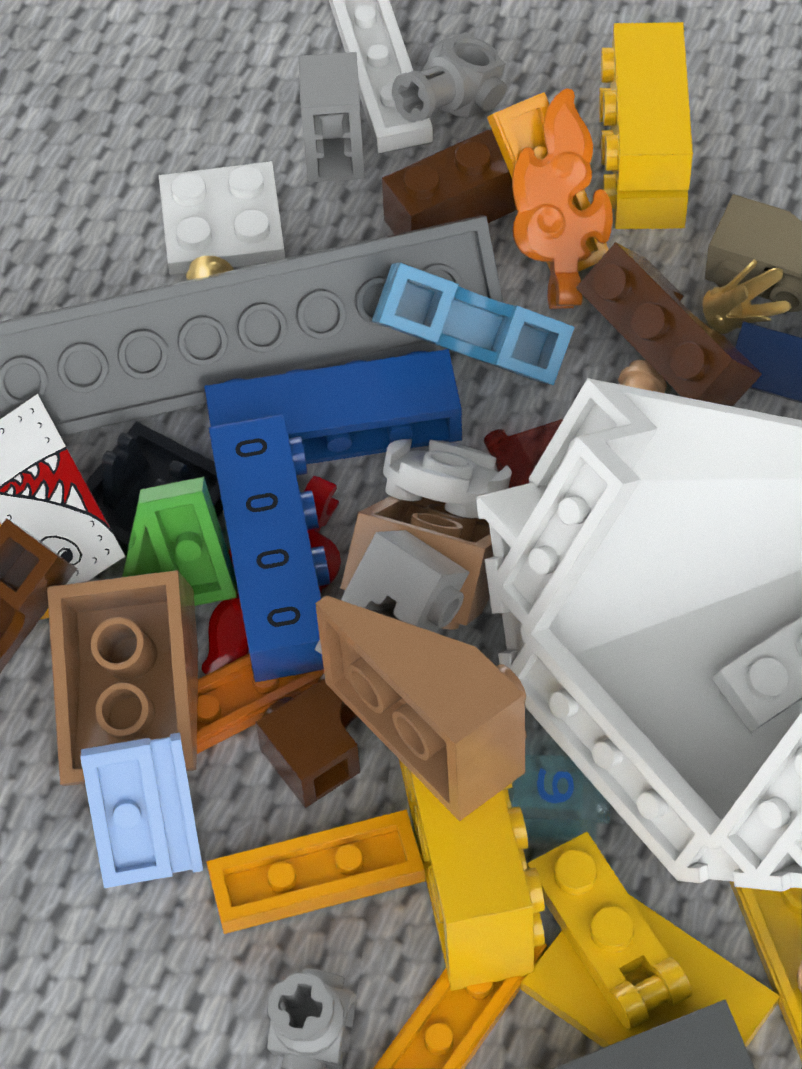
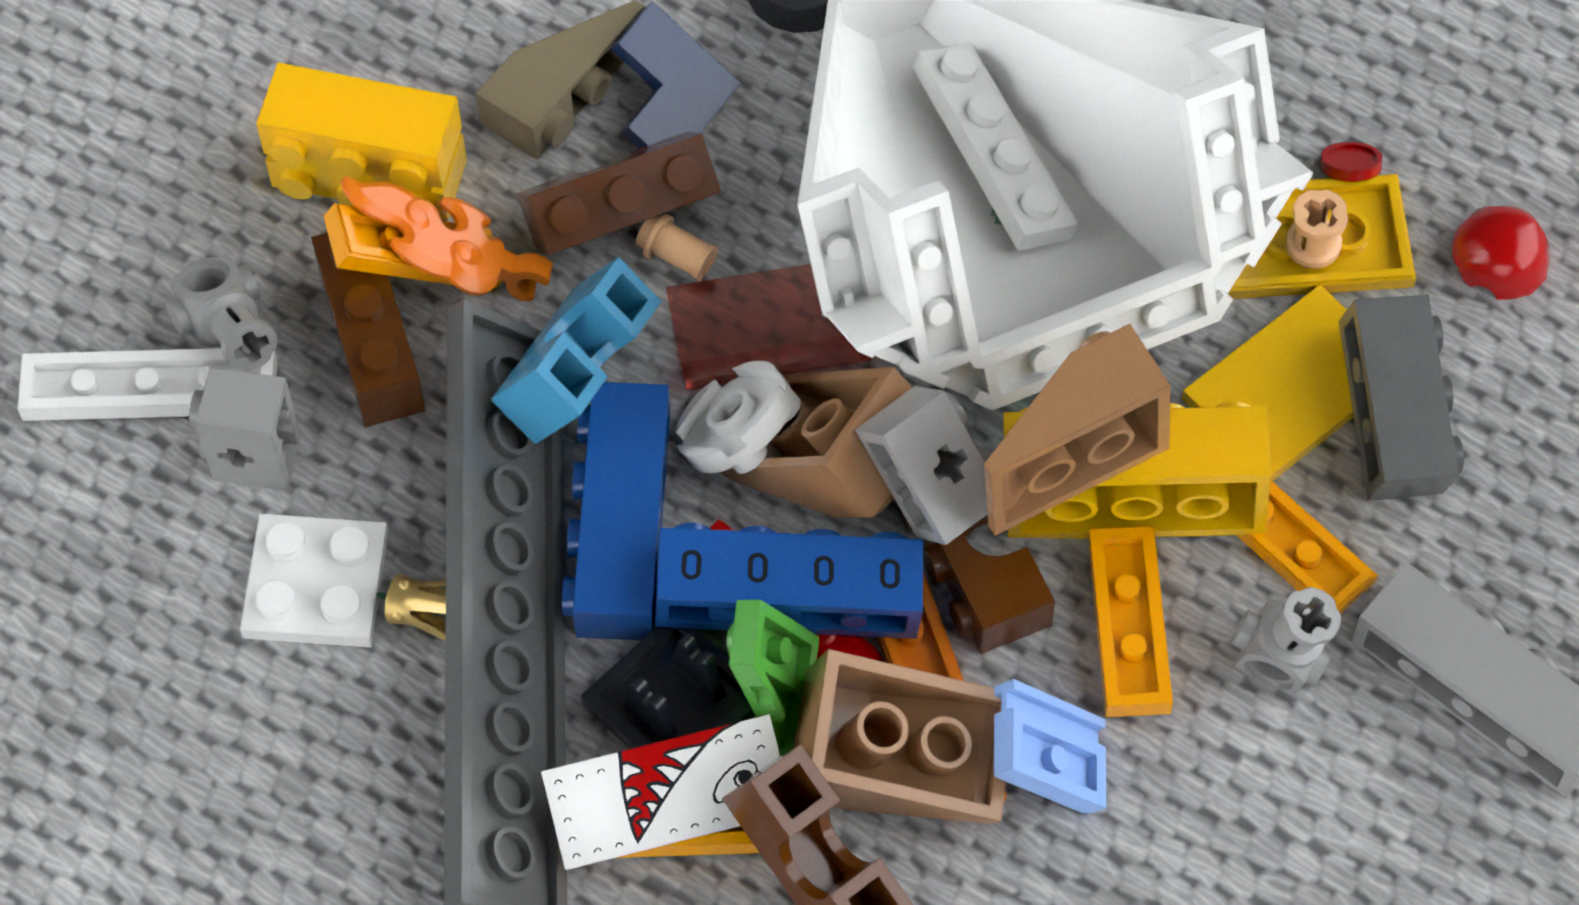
camera: 80 degrees left, 5 degrees up
(608, 930) = (1259, 382): yellow plate -> none
(731, 304) = (594, 141): pearl gold piece -> none

